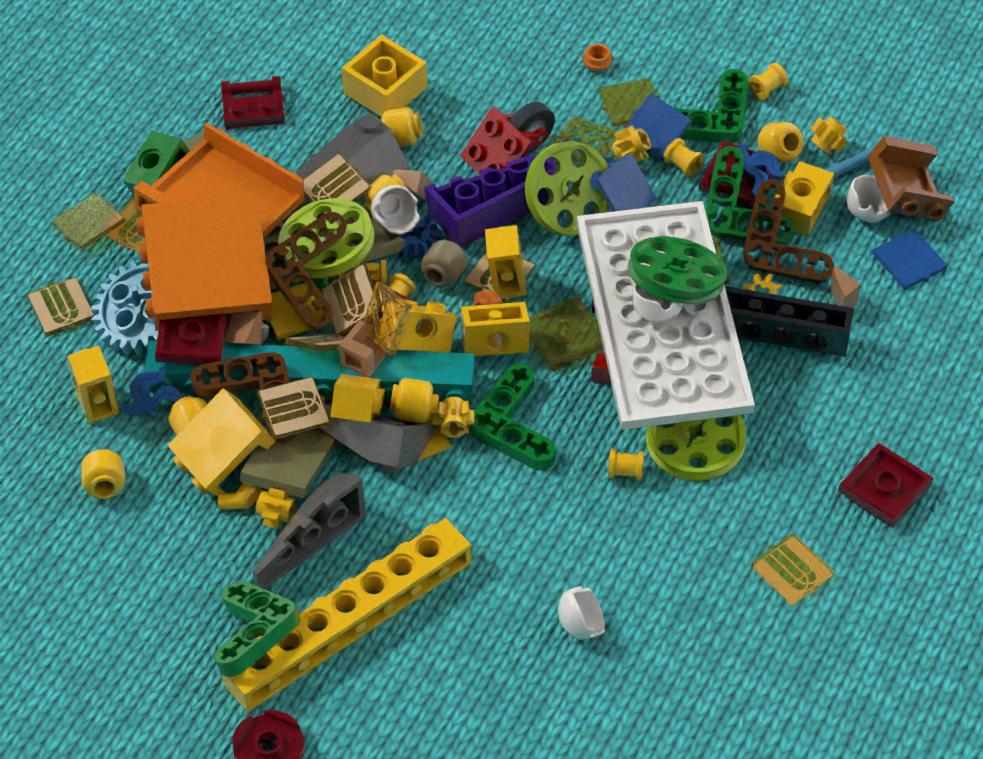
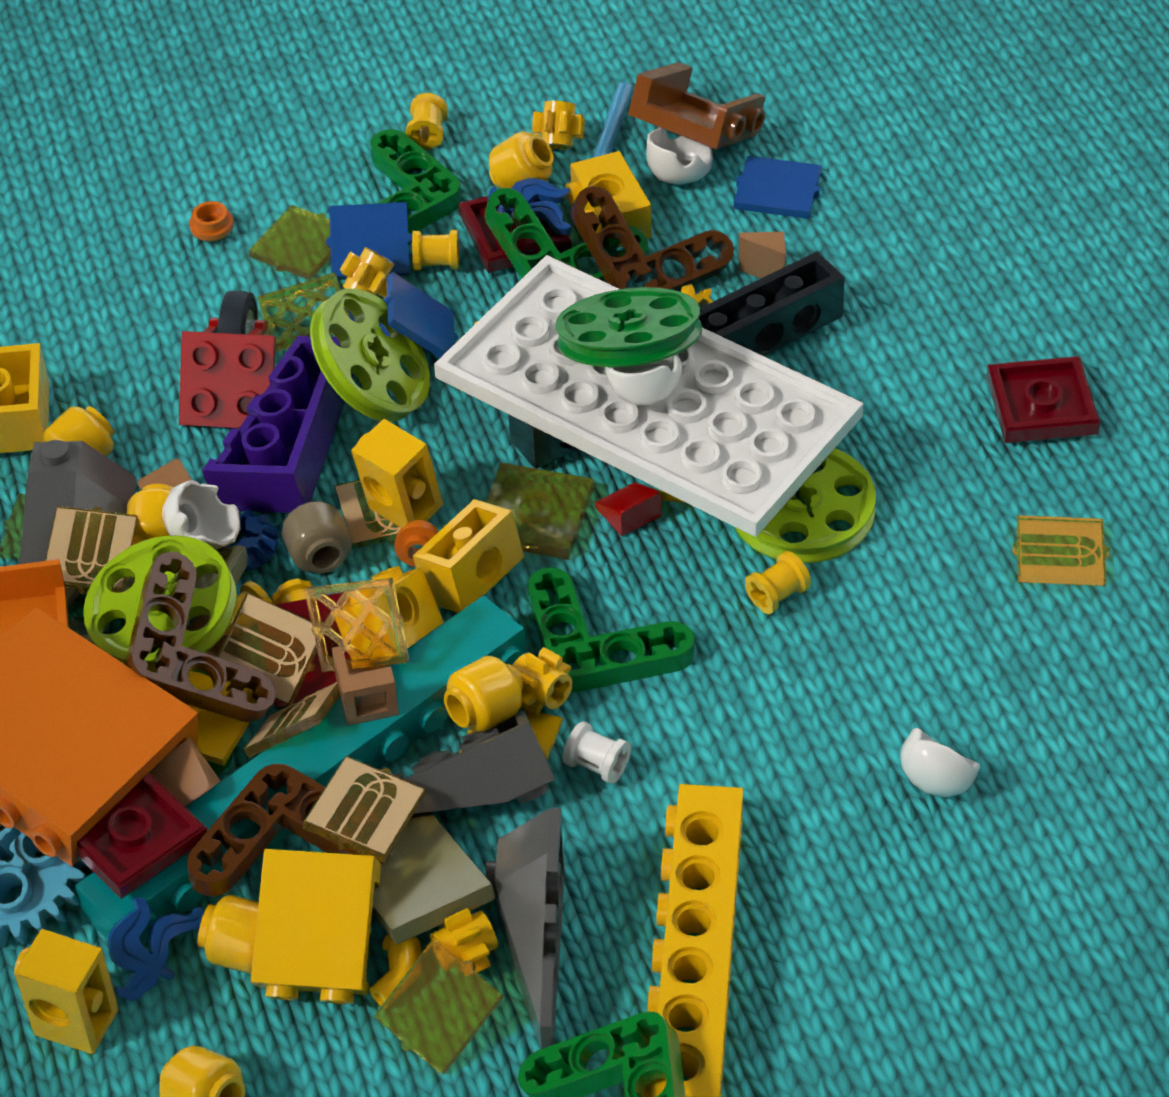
camera: 45 degrees left, 5 degrees down
(231, 525) = (438, 1006): none -> clear yellow piece
(357, 398) = (425, 738): yellow brick -> none
(439, 473) = (596, 752): none -> white bush

